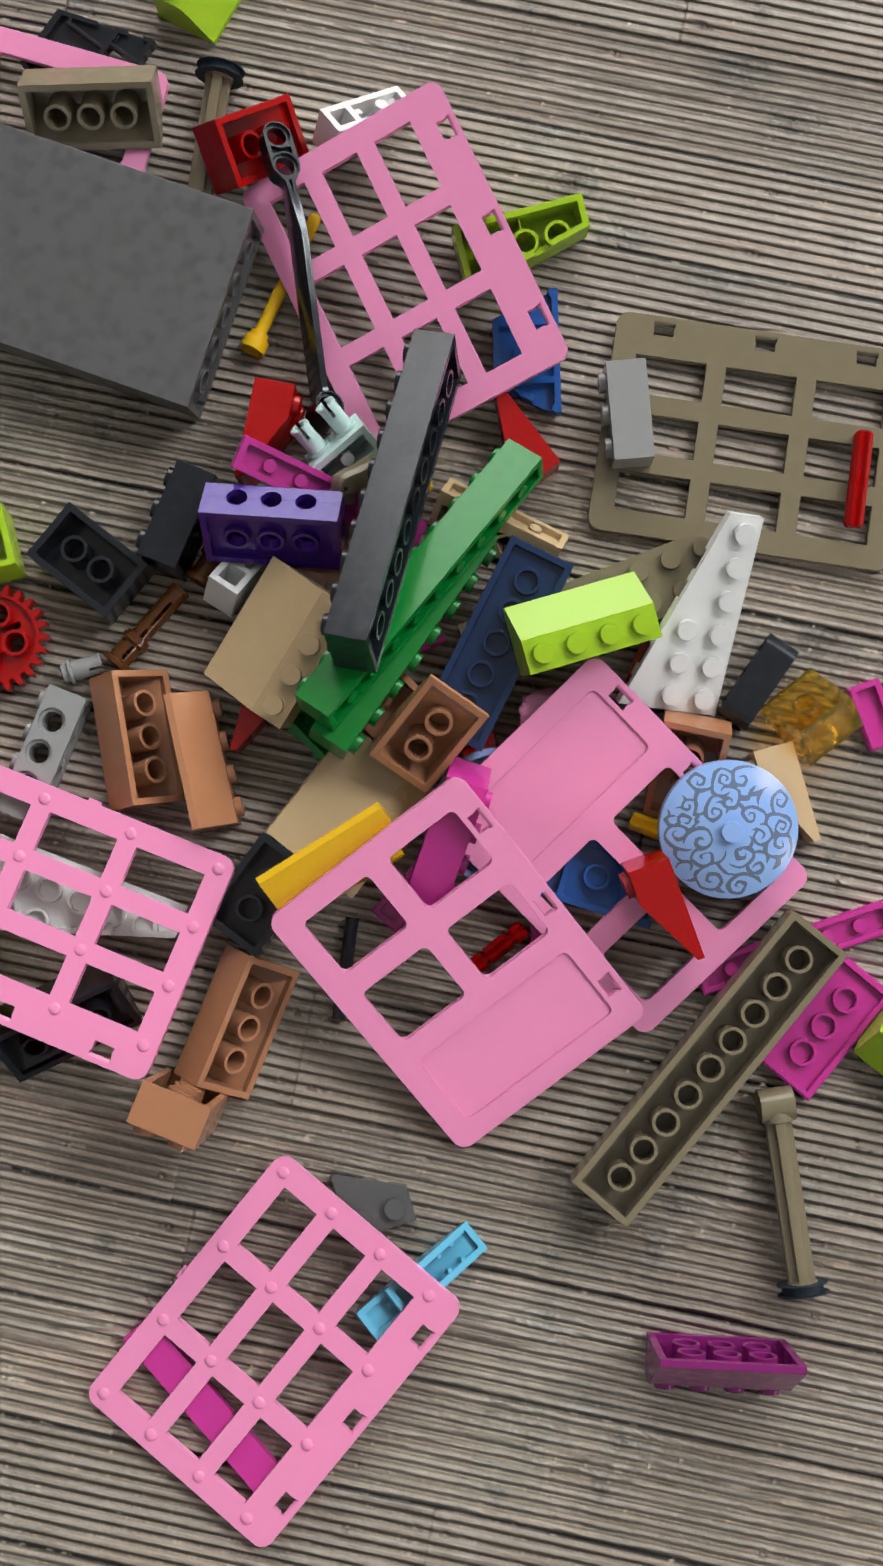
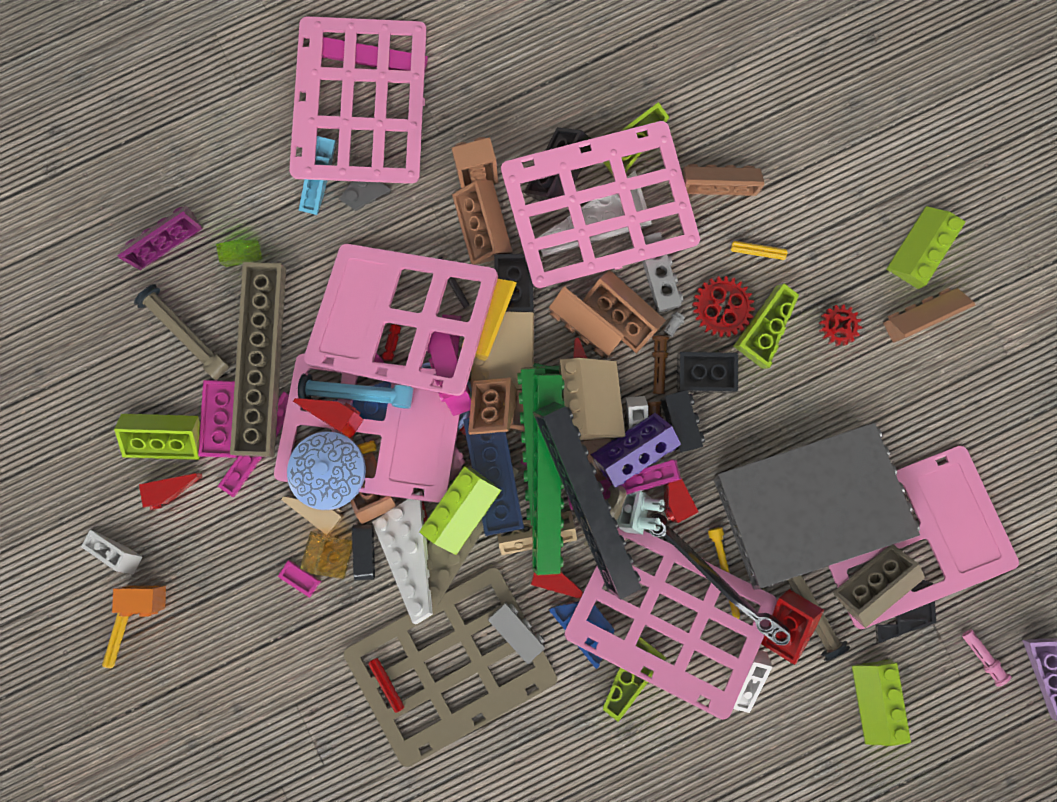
camera: 140 degrees right, 0 degrees up
(549, 857) = (399, 396): none -> medium azure piece
(620, 1252) = (238, 251): none -> clear neon green slope

